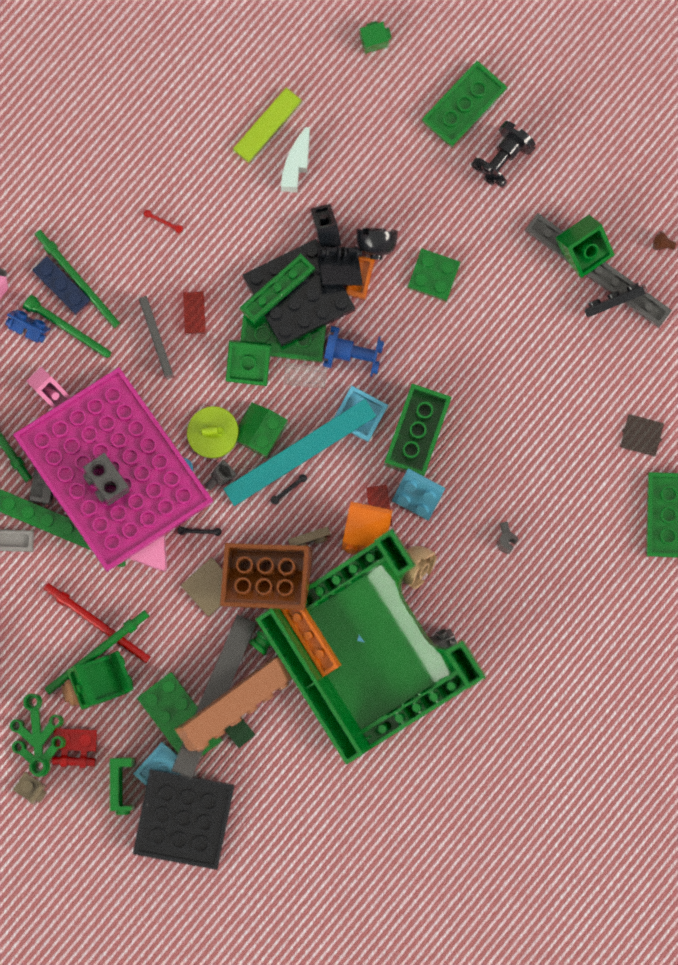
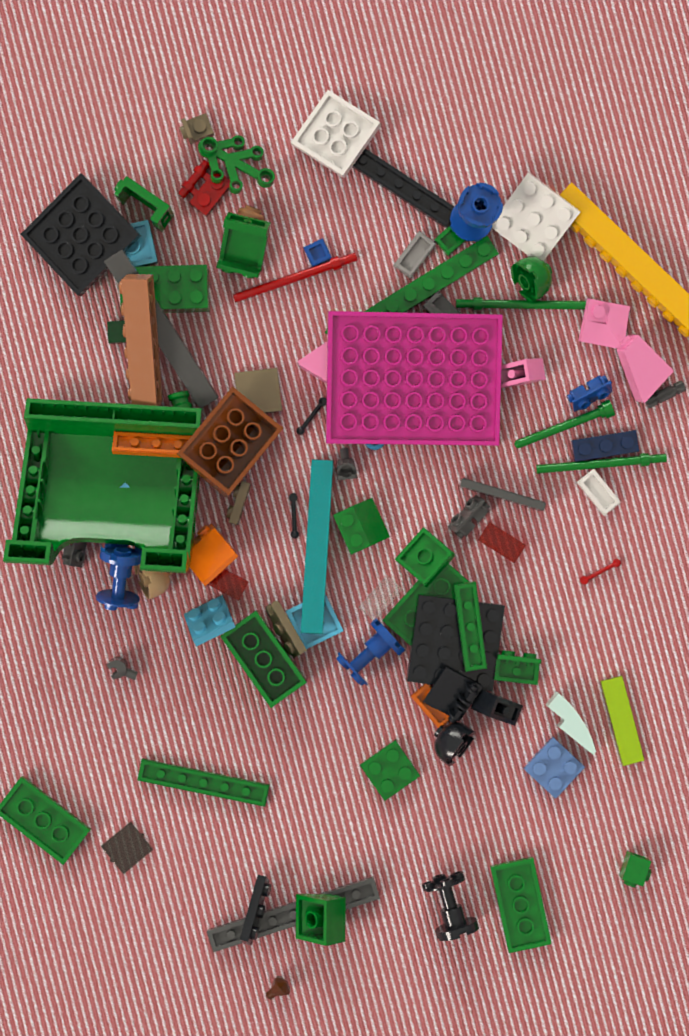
camera: 125 degrees right, 5 degrees up
(64, 619) = (317, 253): none -> blue tile
(101, 265) = (598, 492): none -> white tile
(109, 477) = (406, 368): dark grey brick -> none
(129, 627) = (271, 300): green bar -> none
(182, 351) = (474, 508): none -> dark grey hinge
(212, 432) = (387, 485): lime shield -> none
(284, 231) = (517, 668): none -> green bracket
(341, 151) = (554, 767): none -> medium blue plate
(382, 431) = (285, 629): none -> dark tan hinge
(421, 594) = (121, 561): none -> blue piece
(548, 411) = (203, 782): none -> green tile

